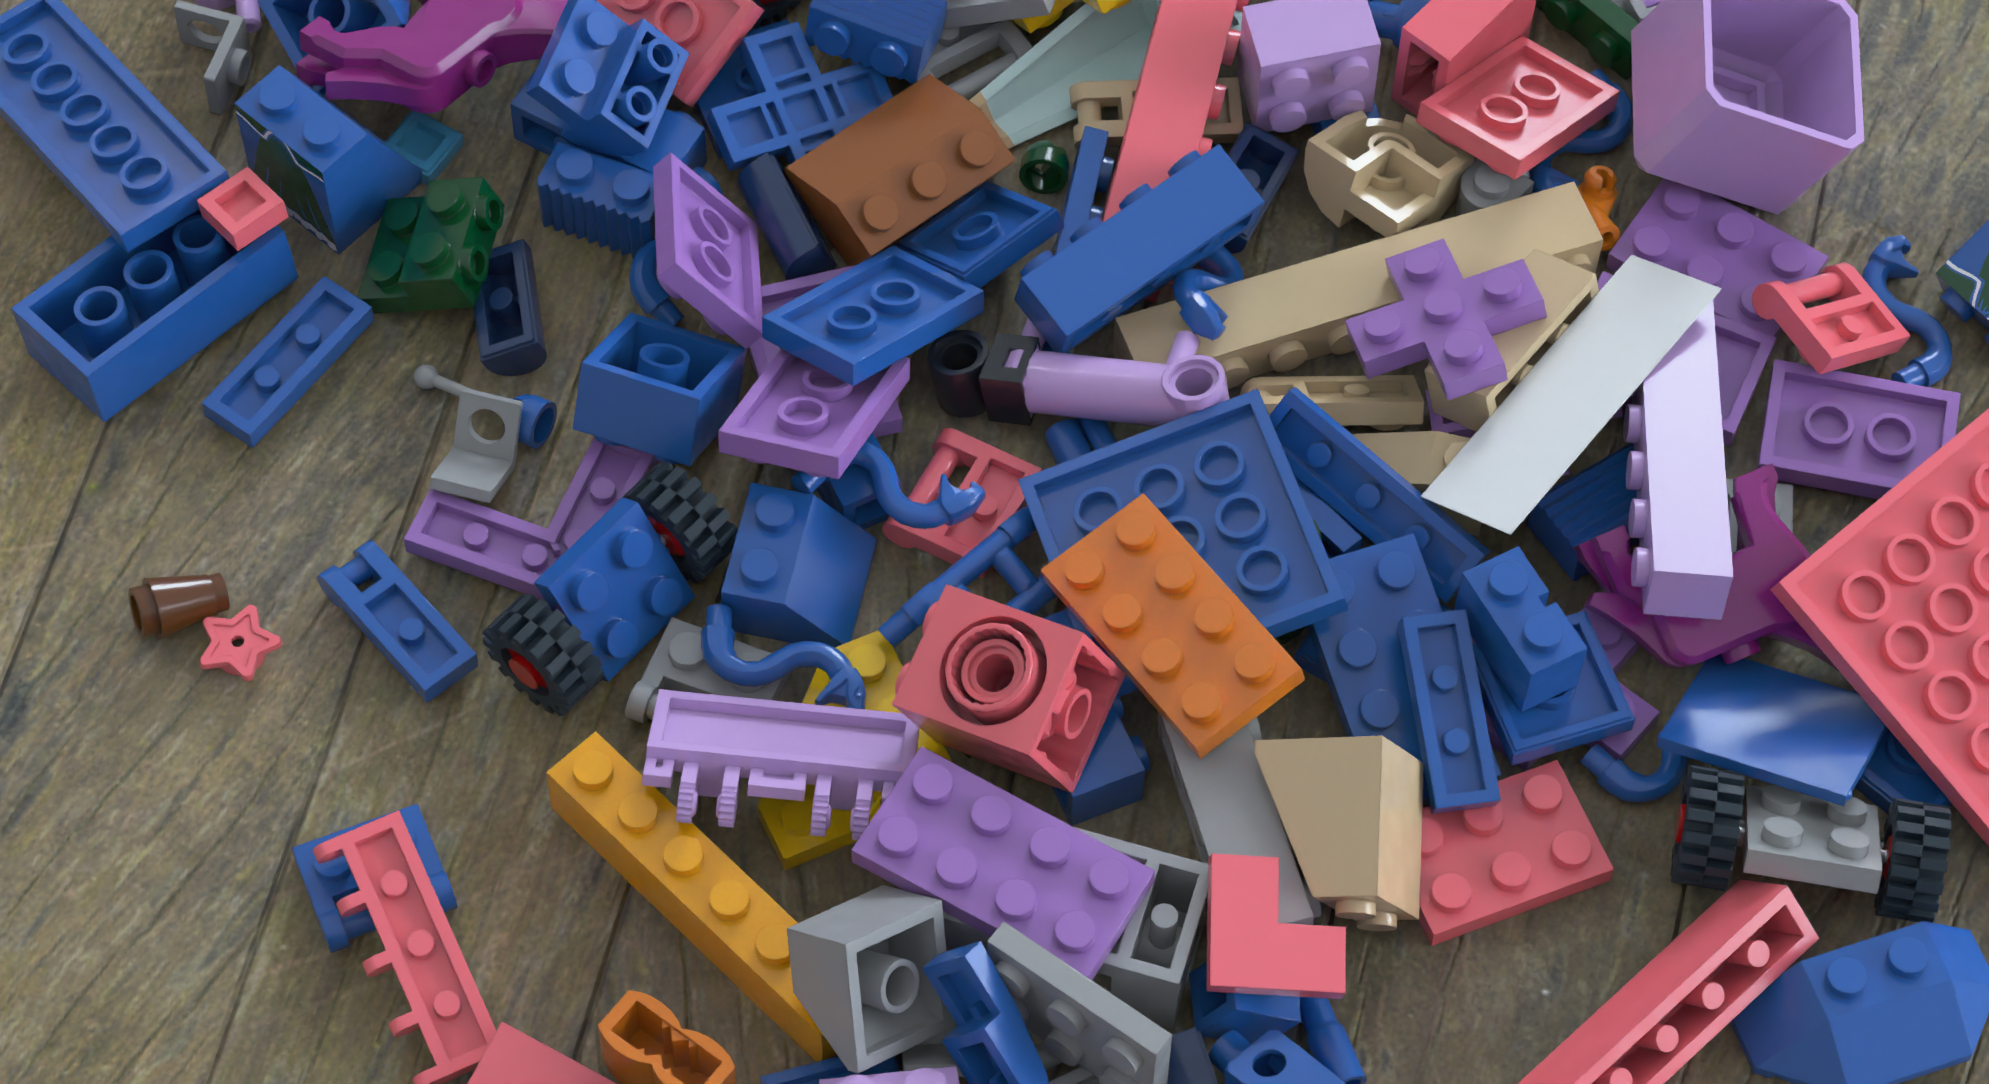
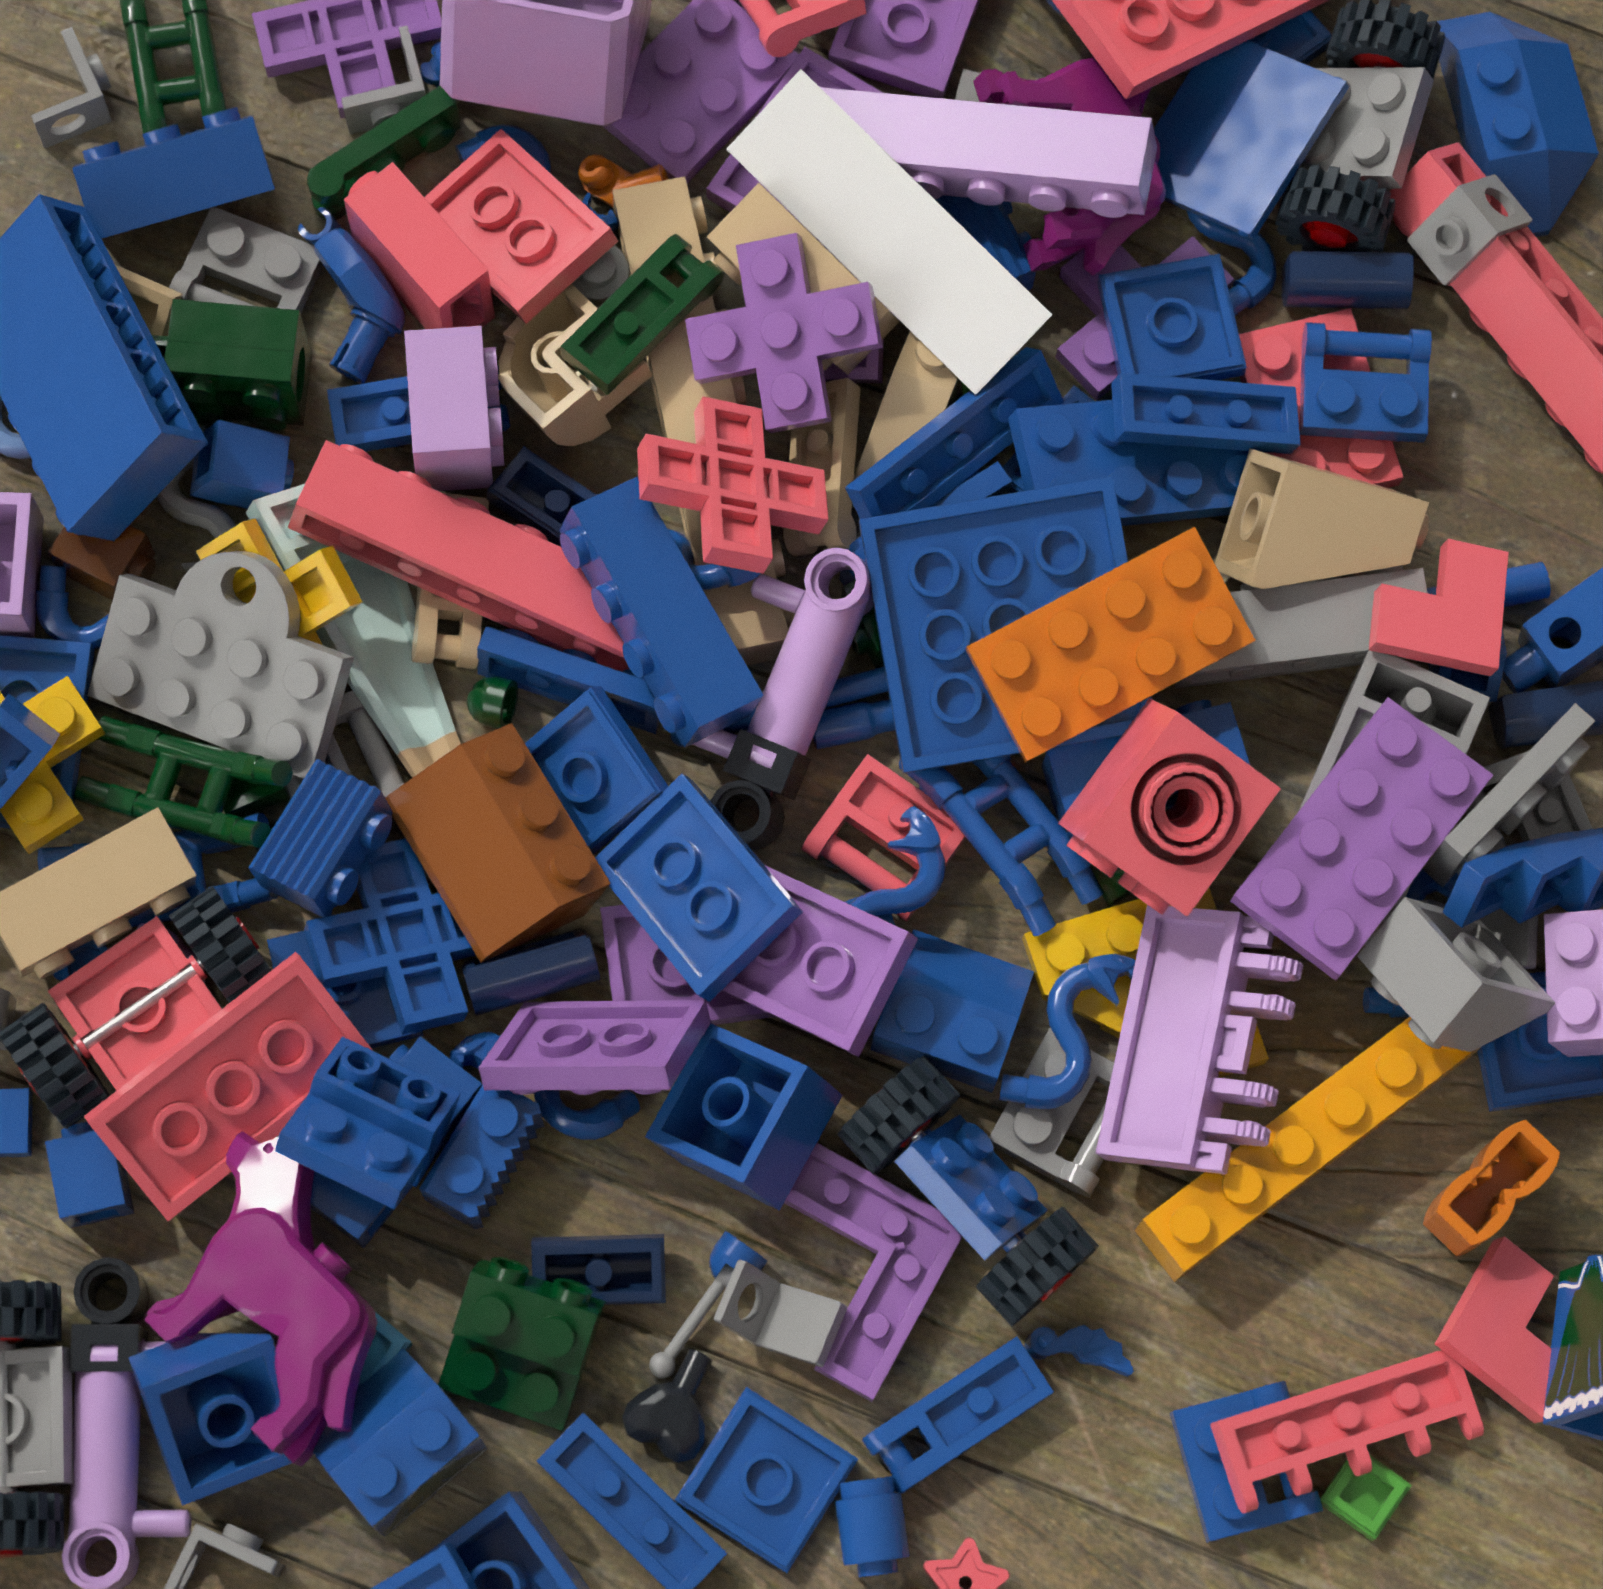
camera: 85 degrees left, 15 degrees up
(242, 208) = (487, 1531): coral plate -> none
(284, 552) = (872, 1526): none -> blue brick
(325, 473) = (766, 1480): none -> blue tile
(348, 995) = (1367, 1499): none -> bright green tile
(381, 386) = (671, 1412): none -> black rock
(479, 727) = (1085, 1345): none -> blue piece
(1275, 287) = (732, 485): none -> coral plate
(1443, 204) = (640, 314): none -> dark green plate
(1502, 875) = (1360, 401): none -> blue plate
(1520, 637) = (1139, 335): blue piece -> none
(1641, 860) = (1347, 280): none -> dark blue brick
(1717, 937) = (1466, 227): none -> light grey bracket

